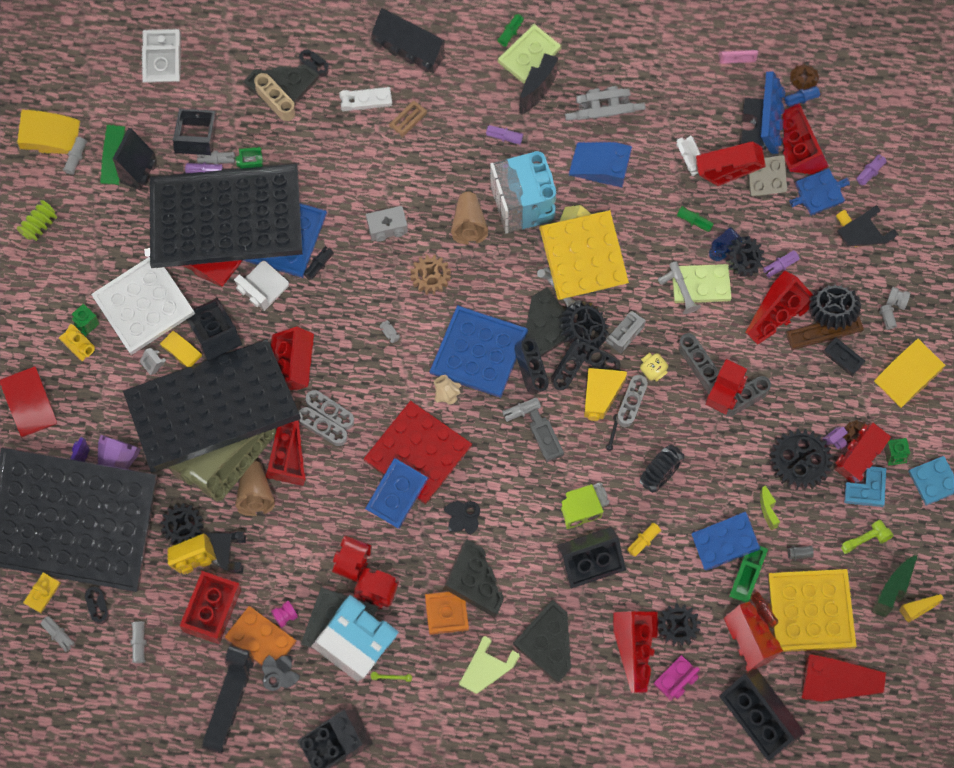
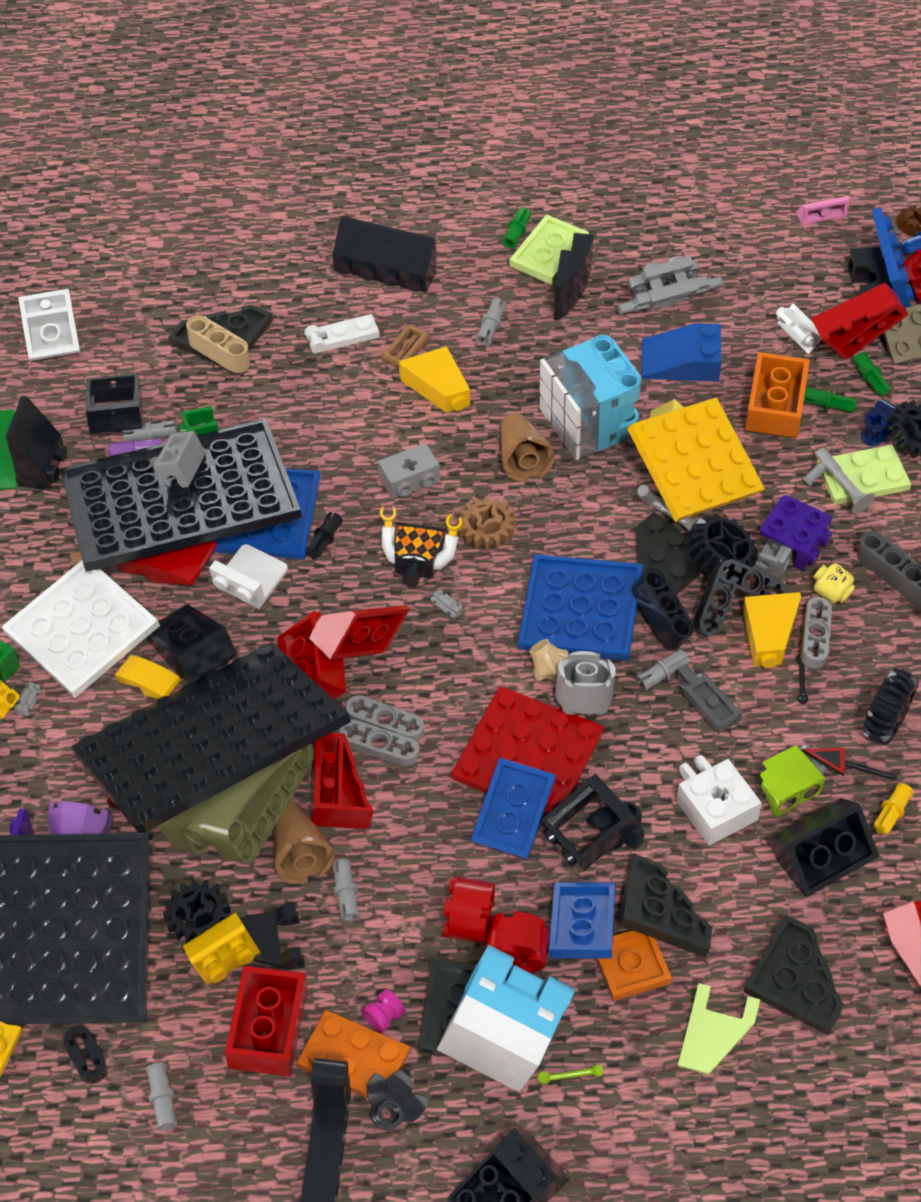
camera: 10 degrees left, 15 degrees down
(57, 633) = (29, 1108): light grey axle -> none
(100, 350) = (27, 699): none -> light grey piece
(151, 361) = (107, 699): light grey tile -> none
(229, 190) = (180, 458): none -> light grey hinge
(278, 527) = (345, 890): none -> light grey pin
(316, 60) = (262, 300): black beam -> none
(322, 347) = (358, 631): none -> red slope
(379, 287) = (418, 548): none -> torso
(422, 579) = (582, 920): none -> blue plate
(423, 151) = (436, 379): none -> yellow slope
(460, 503) = (572, 805): none -> black window
(464, 412) = (585, 683): none -> light grey brick
(472, 109) = (491, 322): none -> light grey pin
(504, 134) = (541, 344): medium lavender axle -> none
(533, 501) = (716, 799): none -> white hinge
(615, 498) = (835, 760): none -> black piece
(640, 322) = (799, 529): none -> dark purple bracket
(657, 210) = (777, 395): none -> orange brick
(731, 203) = (871, 374): none -> green axle

